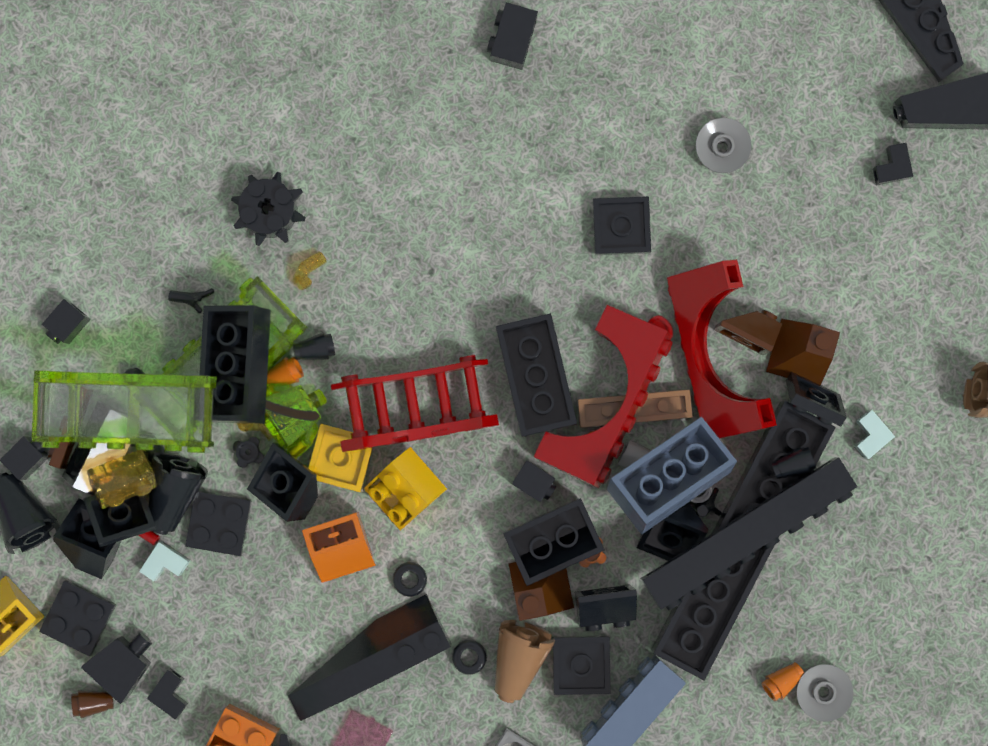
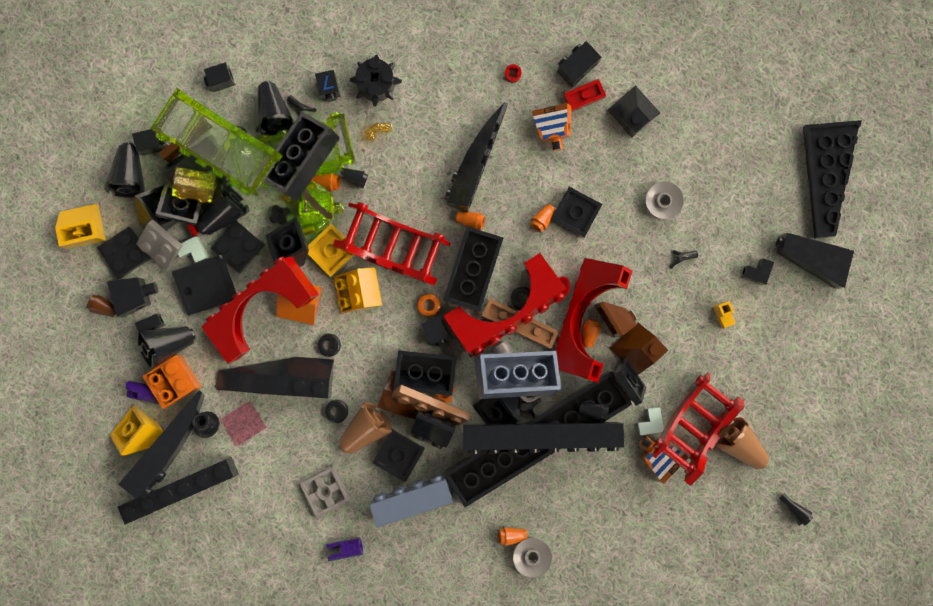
camera: 30 degrees right, 0 degrees up
(119, 580) = (159, 244): none -> light grey plate
(159, 325) = (271, 110): none -> black cone
(201, 703) = (164, 343): none -> black cone
(207, 597) = (204, 284): none -> black container
(211, 251) = (328, 85): none -> black brick
(267, 634) = (226, 326): none -> red arch
(444, 92) = (507, 73): none -> red bush
(456, 241) = (474, 163): none -> black wedge
(493, 456) = (433, 312): none -> orange piece
(495, 314) = (471, 219): none -> orange cone
(528, 132) = (553, 124): none -> torso
(544, 71) = (585, 95): none -> red plate
(577, 579) = (426, 403): none -> medium nougat plate
(584, 261) = (541, 220): none -> orange cone
(607, 382) = (515, 292): none -> black piece
(618, 54) = (633, 111): none -> black slope
(729, 365) = (591, 330): none -> orange cone
(788, 202) = (683, 256): none -> black bar
(881, 243) = (723, 313): none -> yellow piece
(912, 471) = (661, 466): none -> torso
(955, 416) = (707, 441): none -> red fence

